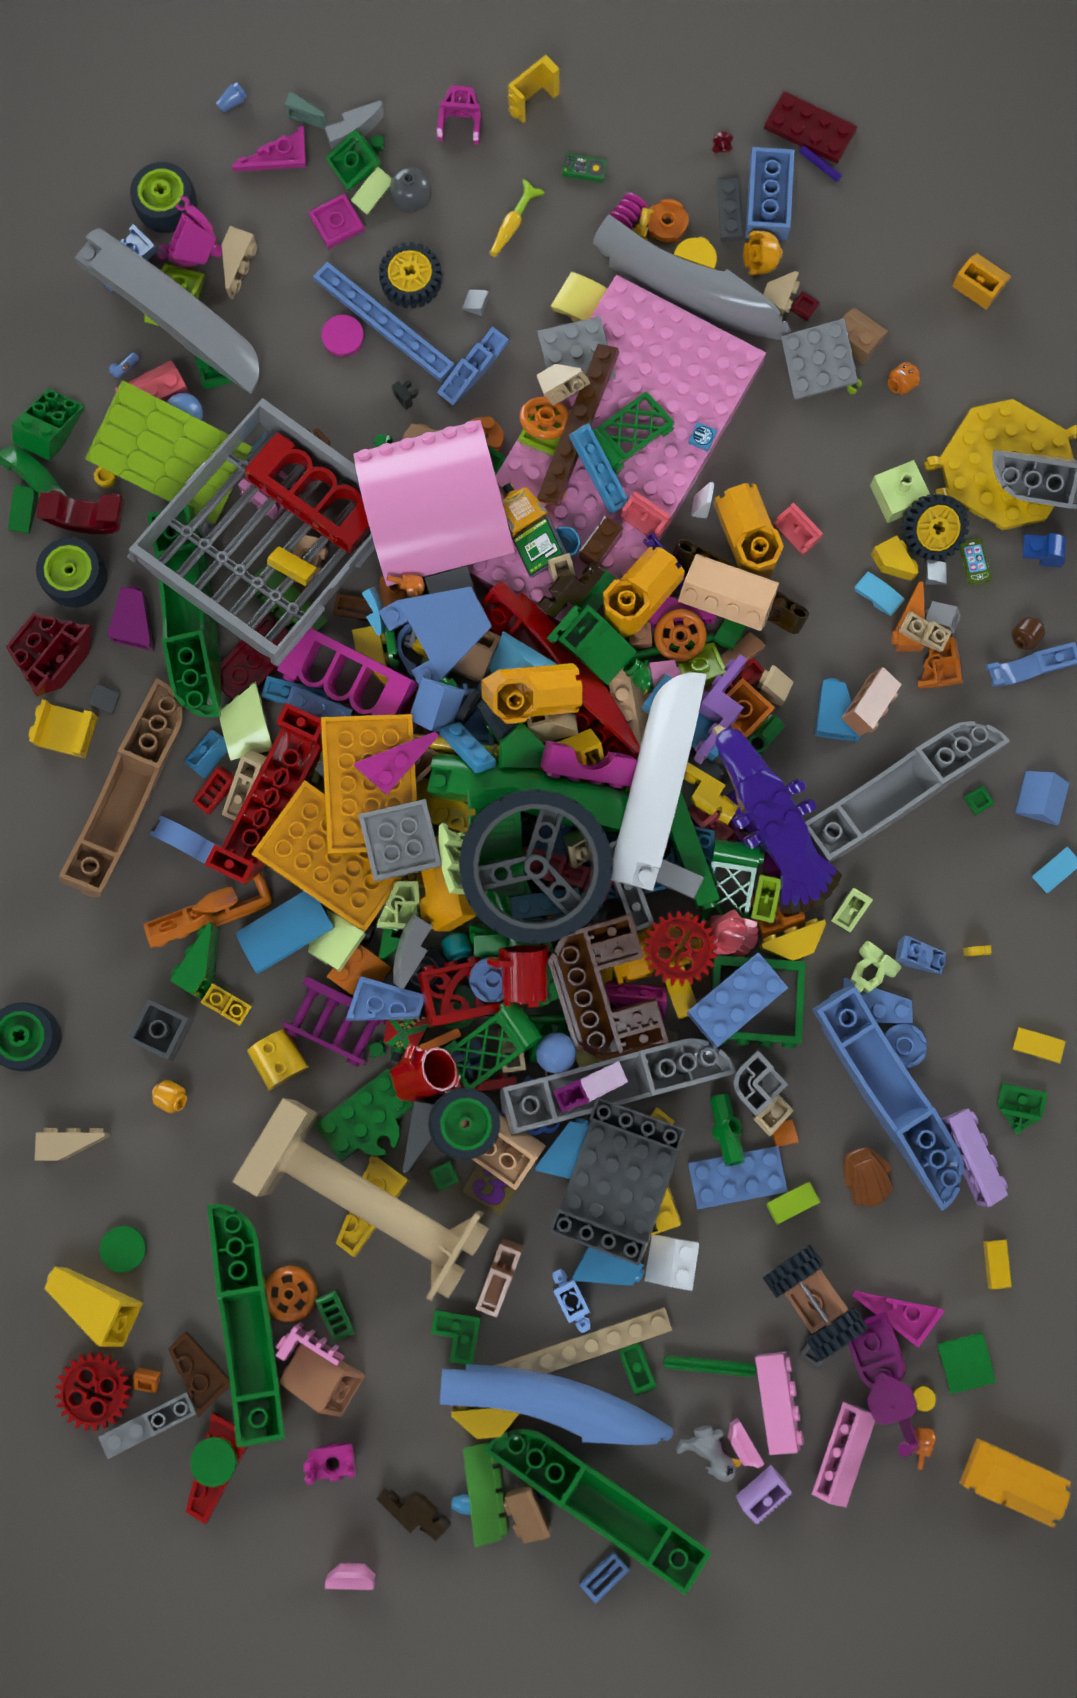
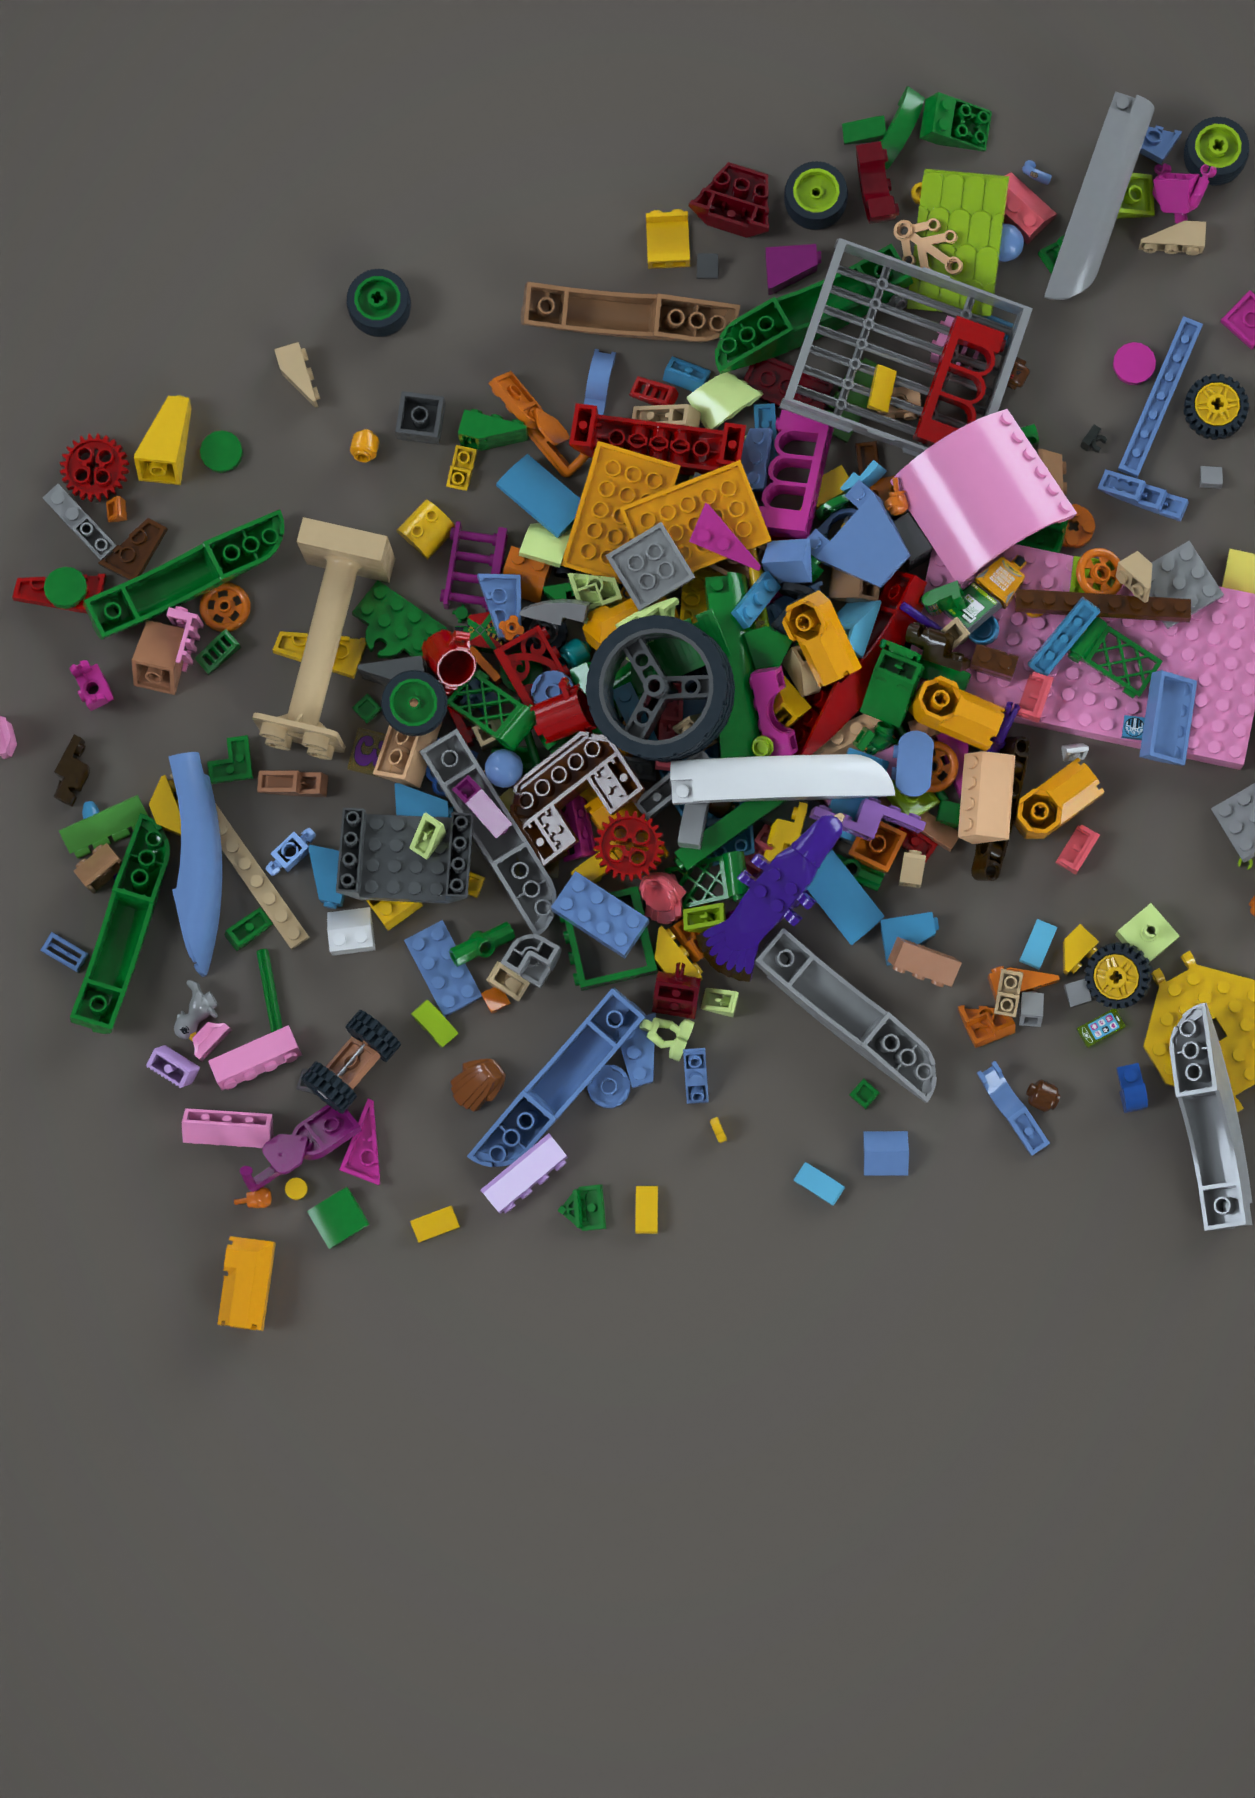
camera: 80 degrees right, 0 degrees up
(160, 482) = (926, 244): none -> light nougat plant
(413, 1007) = (507, 632): none -> orange plate
(522, 569) = (944, 598): none -> green leg
(533, 598) = (919, 616): none -> dark purple piece
(608, 1152) = (427, 836): none -> yellowish green slope
(619, 785) = (762, 746): none -> lime plate
(637, 689) = (863, 738): none -> green tile
(676, 649) = (913, 763): none -> medium blue brick
(703, 403) = (1168, 718): none -> medium blue slope
(795, 755) = (844, 899): none -> dark azure slope
(834, 949) = (676, 993): none -> dark red plate

